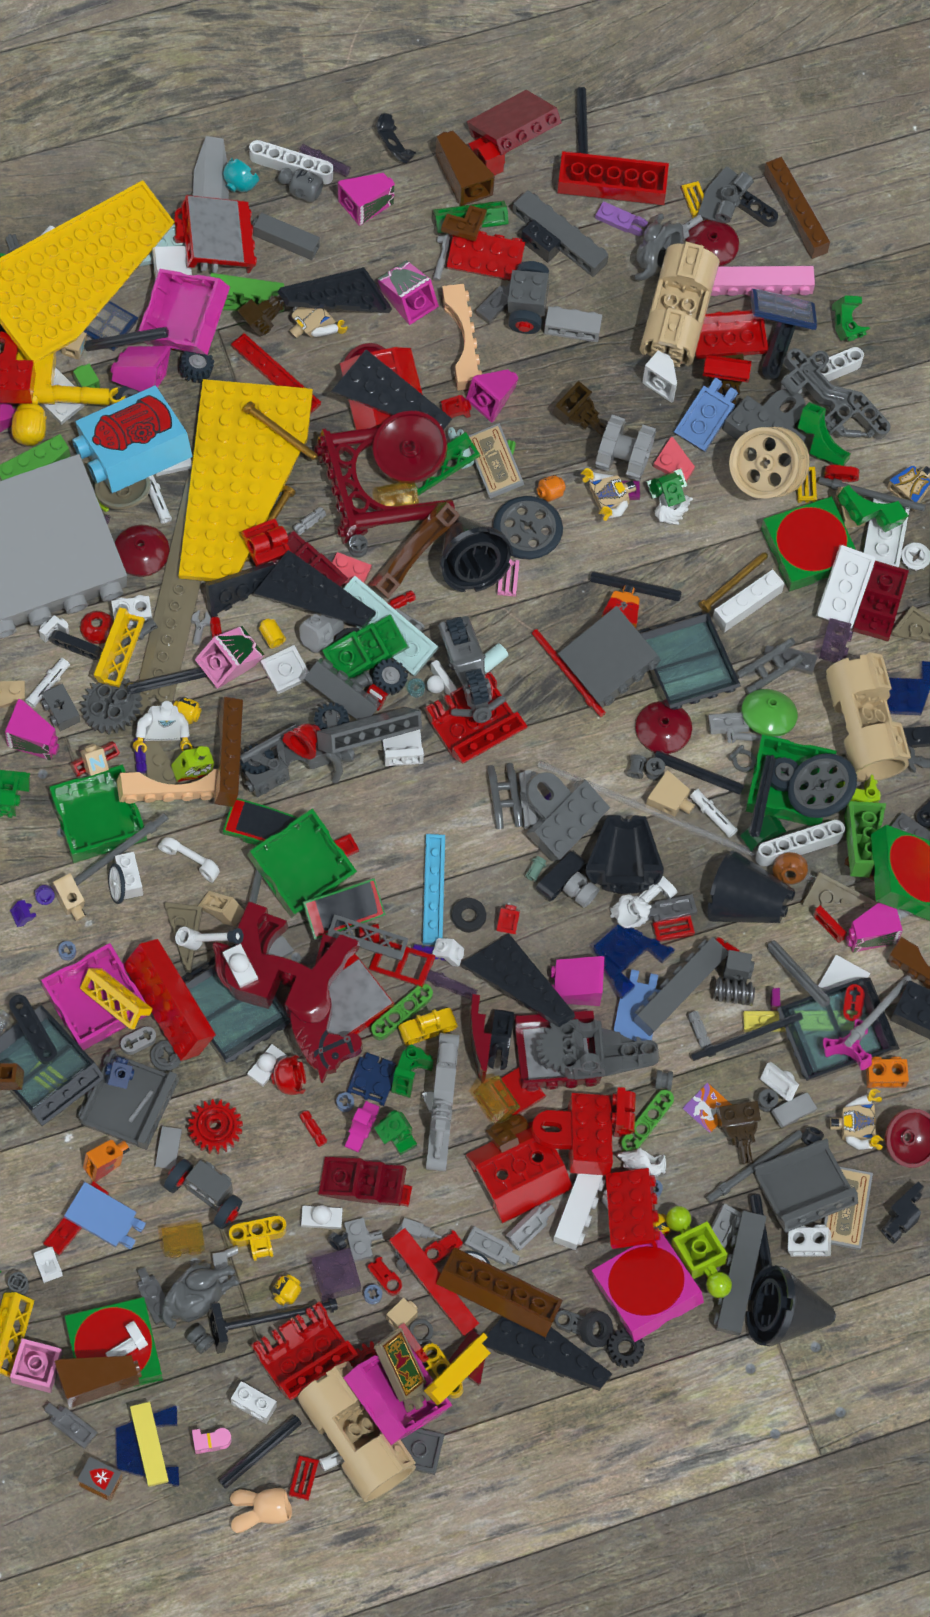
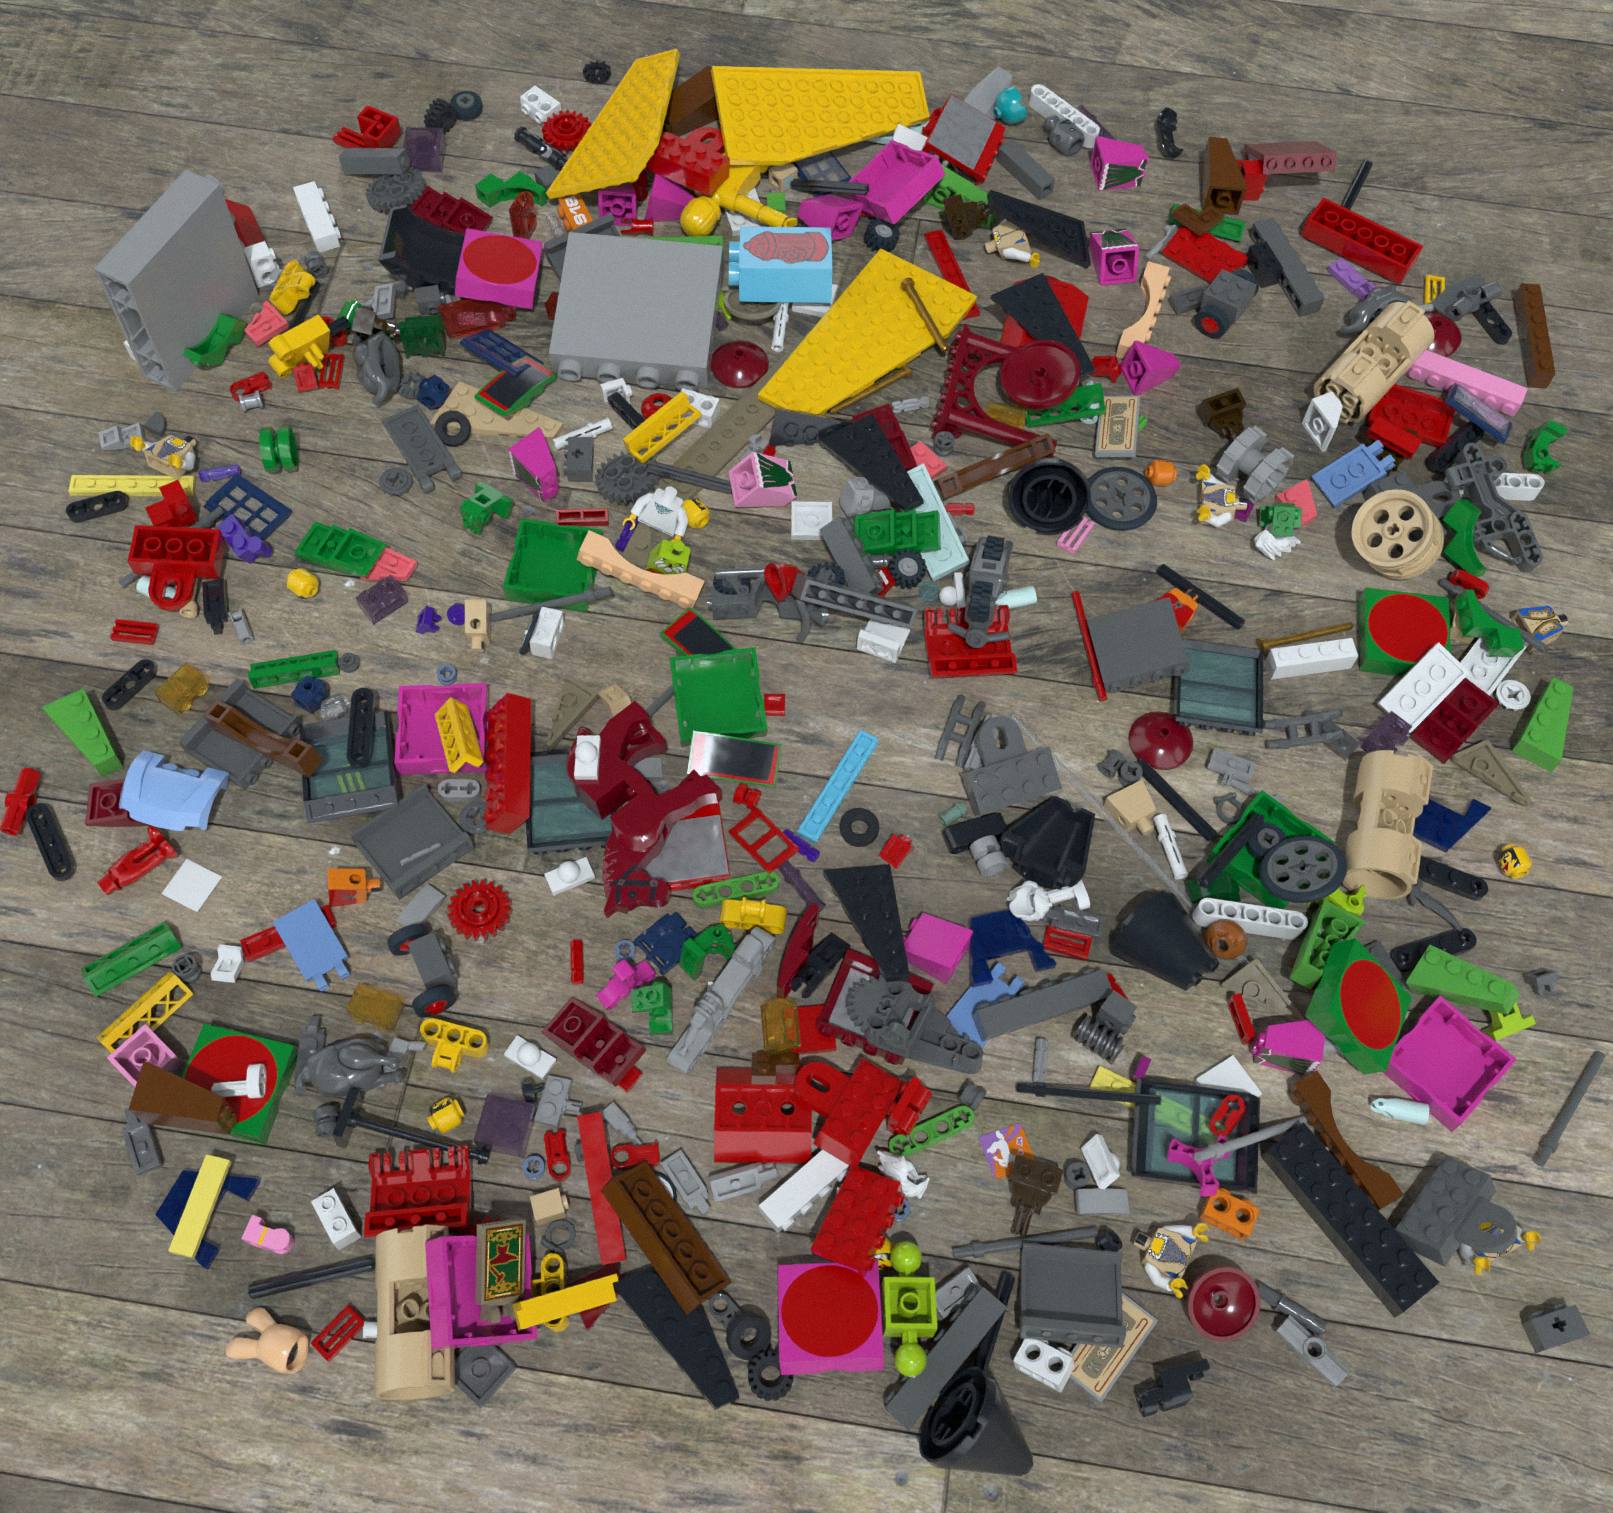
camera: 30 degrees right, 5 degrees down
(94, 759) = (576, 511): tan brick -> none
(100, 1479) = (128, 1217): piece -> none
(122, 1078) = (408, 811): dark blue brick -> none
(148, 626) = (696, 427): dark grey pin -> none
(193, 939) = (566, 717): white piece -> none
(208, 869) = (626, 661): white piece -> none
(230, 746) = (699, 572): reddish brown arch -> none
(266, 541) = (855, 398): red plate -> none
(272, 633) = (816, 482): yellow brick -> none
(289, 1075) = (583, 896): red cylinder -> none
(369, 945) = (738, 806): dark grey fence -> none
(414, 1344) = (537, 1244): tile -> none
(449, 950) = (817, 851): white bracket -> none
(573, 324) = (1258, 344): light grey brick -> none
(769, 712) = (1281, 774): bright green dish -> none
(798, 973) = (1180, 1055): dark grey axle -> none
(807, 498) = (1414, 589): yellow tile -> none

